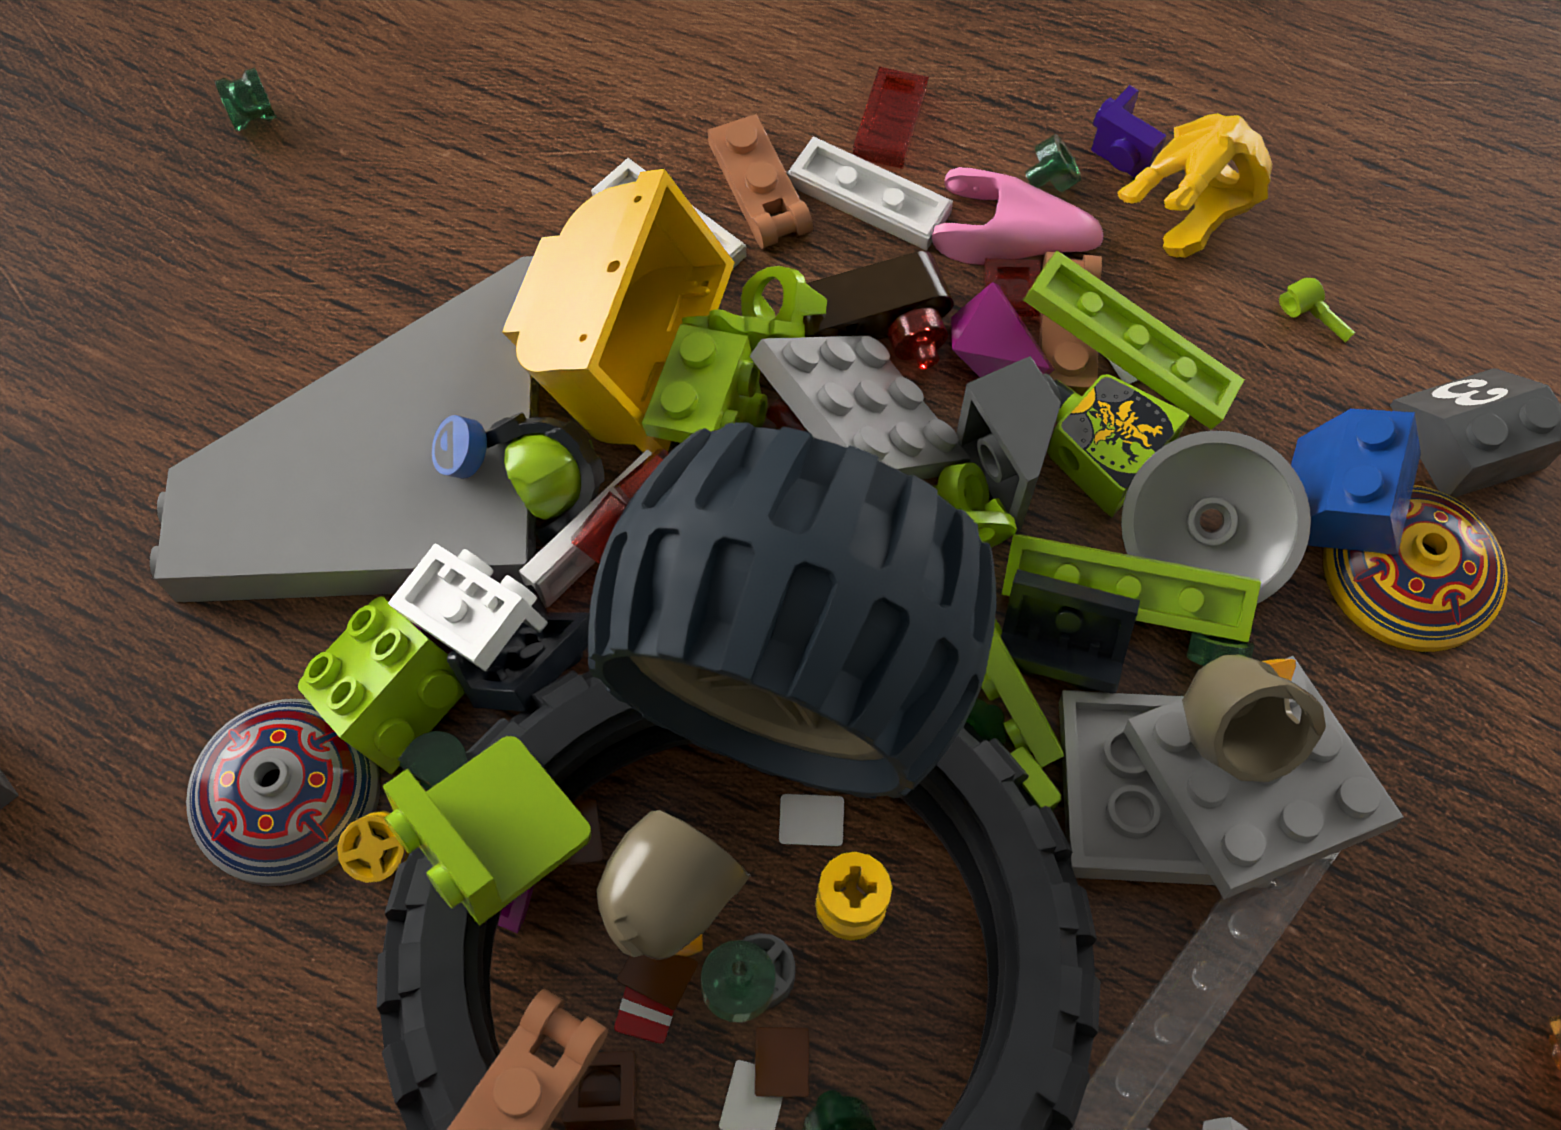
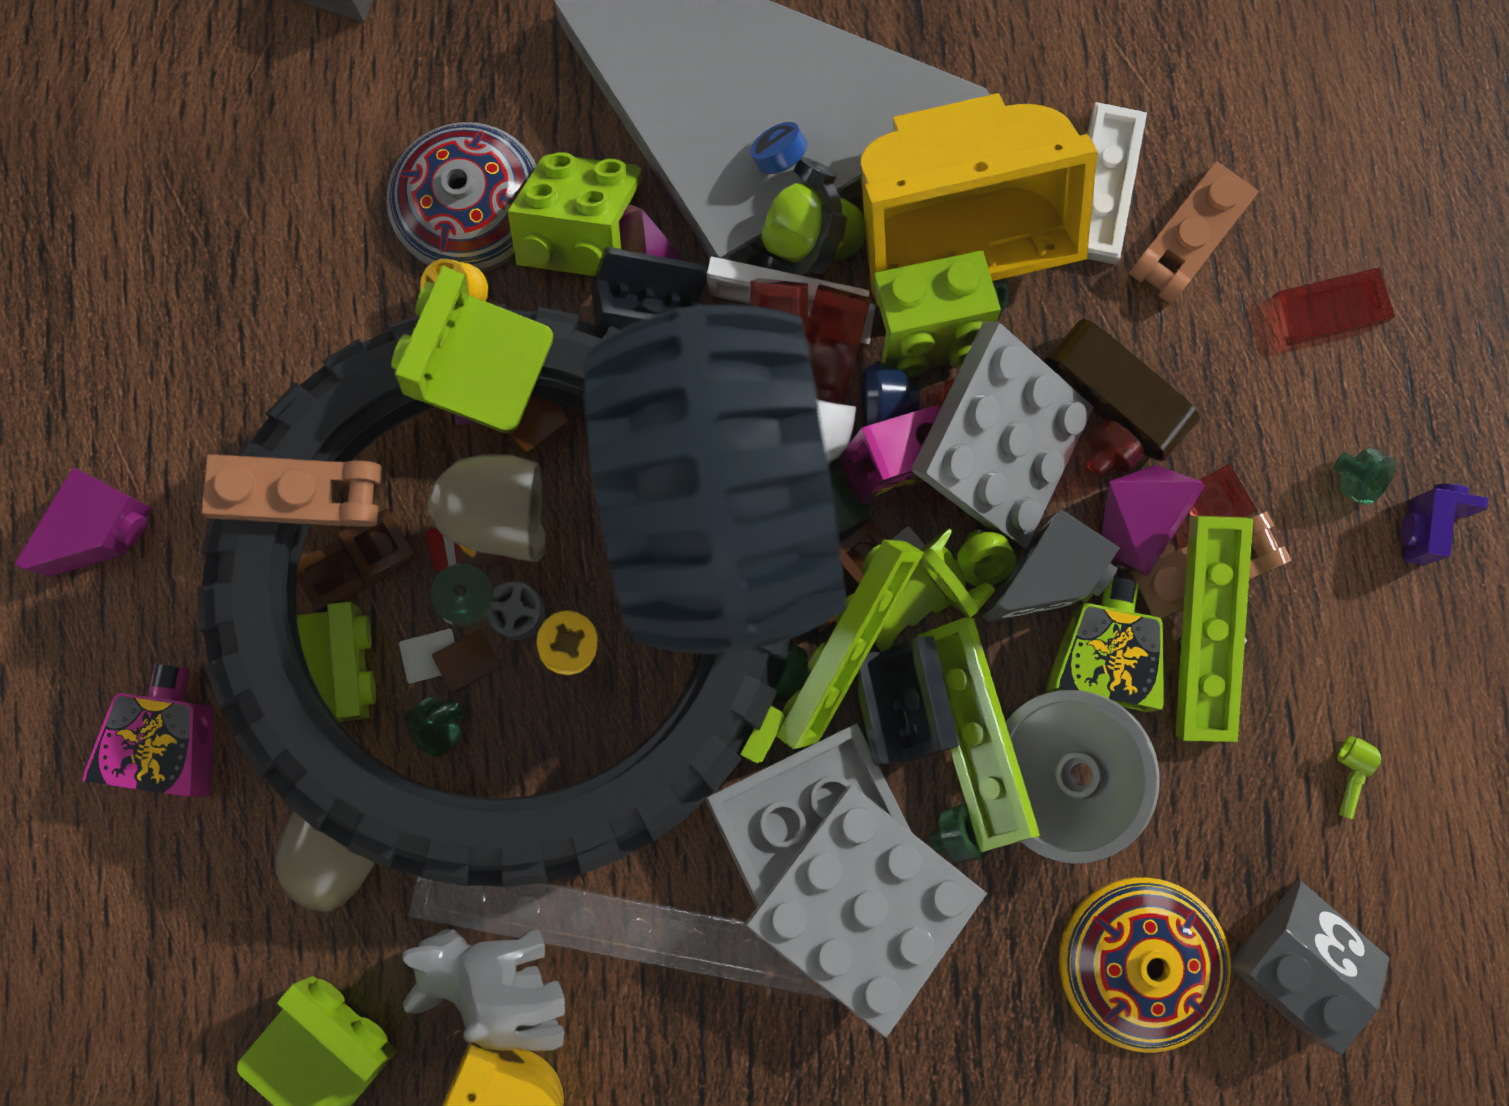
camera: 60 degrees right, 15 degrees up
(433, 757) = (535, 288): clear green brick -> none
(464, 605) = (649, 235): white bracket -> none
(758, 317) = (1047, 336): lime hair -> none
(869, 192) = (1240, 331): white tile -> none
(1024, 222) = (1285, 480): bright pink animal -> none
(1210, 183) = (1443, 620): yellow piece -> none
(1244, 718) = (884, 875): dark tan piece -> none
(1359, 478) = (1183, 879): blue slope -> none

